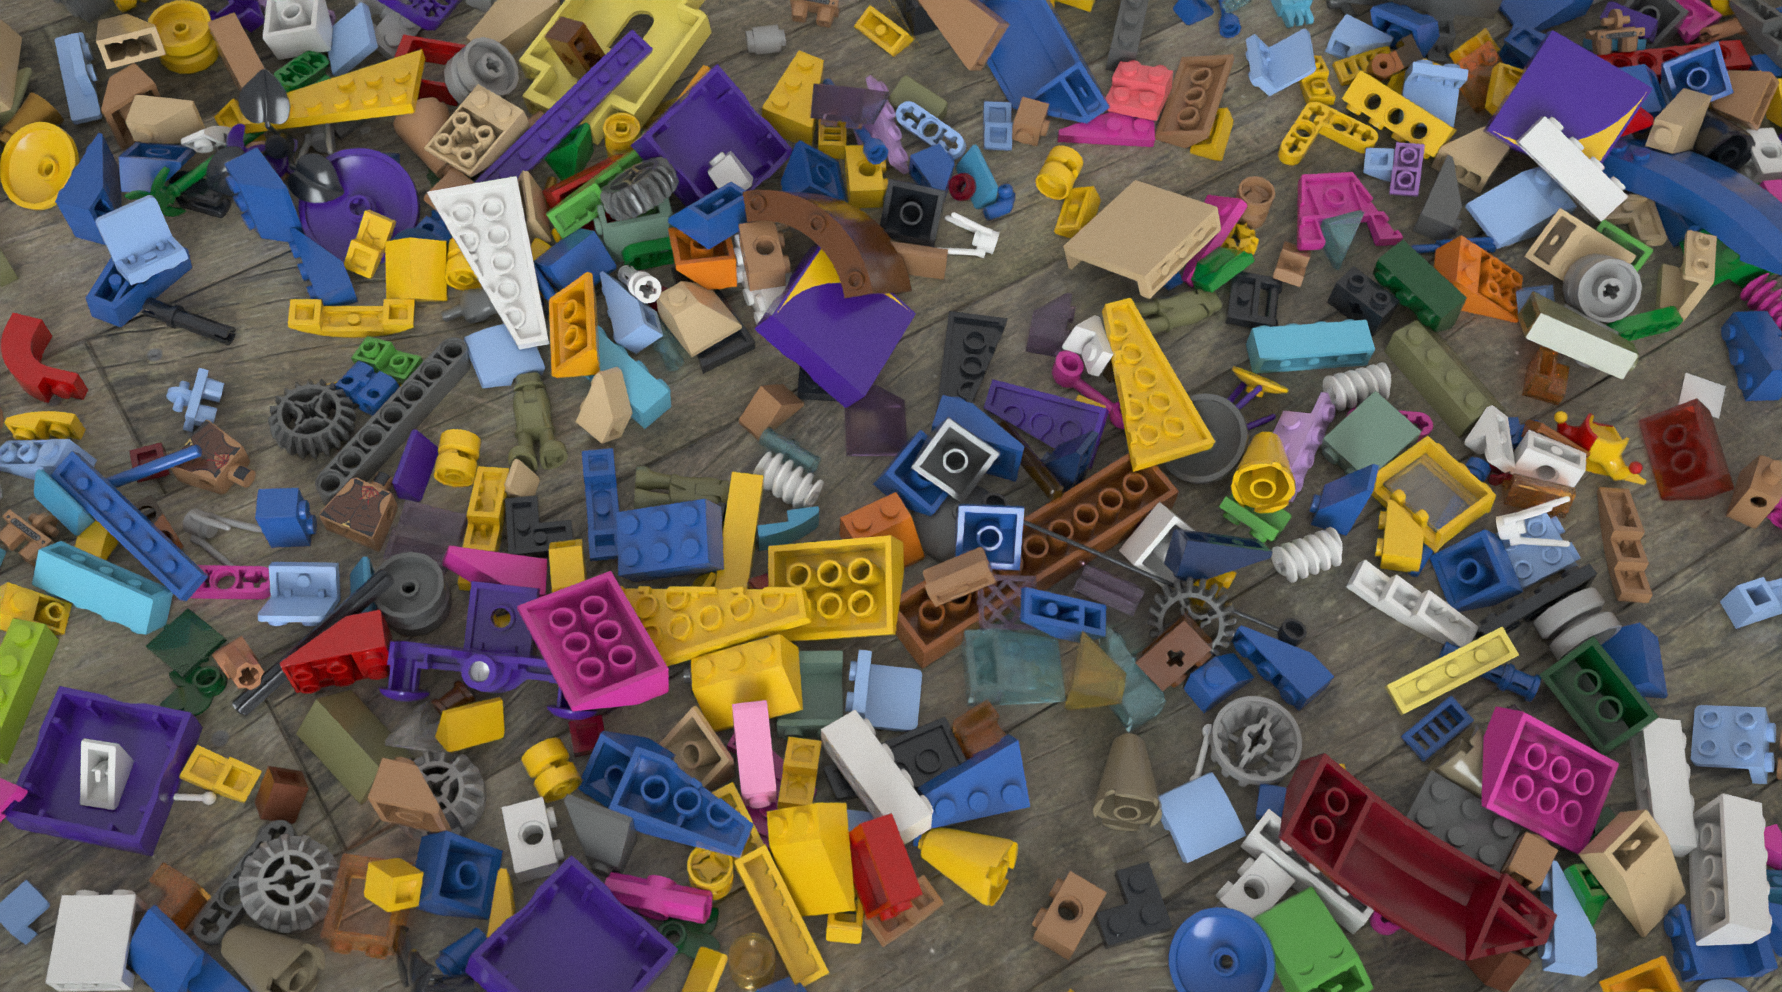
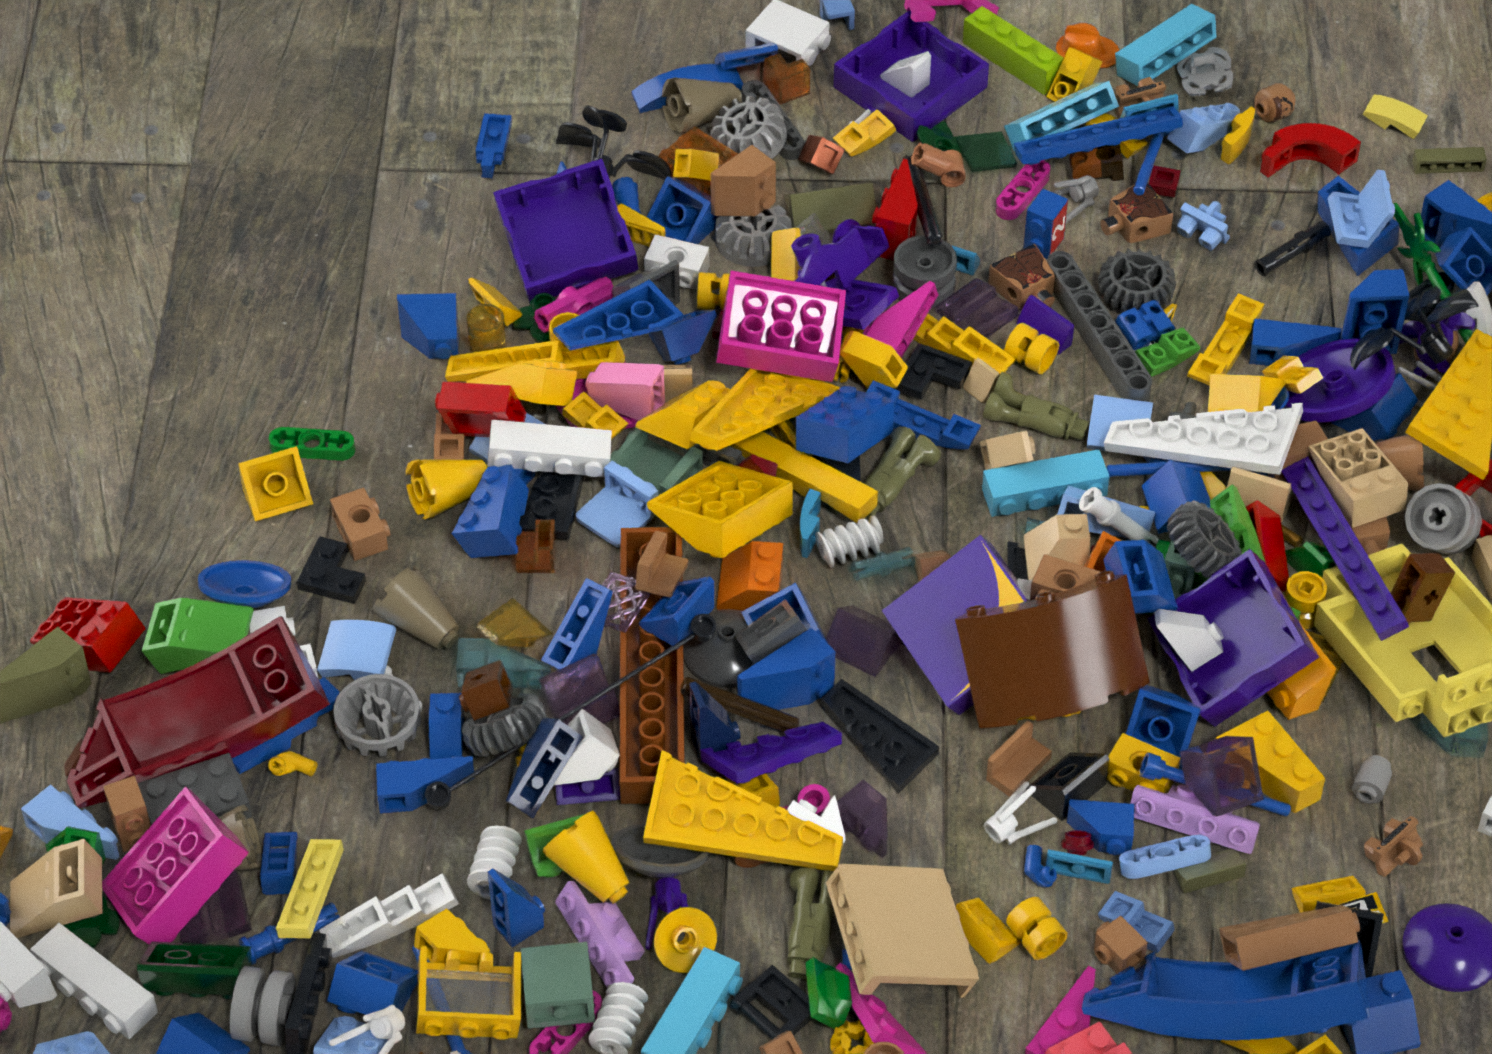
camera: 130 degrees right, 10 degrees down
(301, 593) = (968, 213): light blue bracket -> none
(574, 329) = (1091, 458): light orange slope -> none
(1011, 668) = (563, 581): clear light blue slope -> none

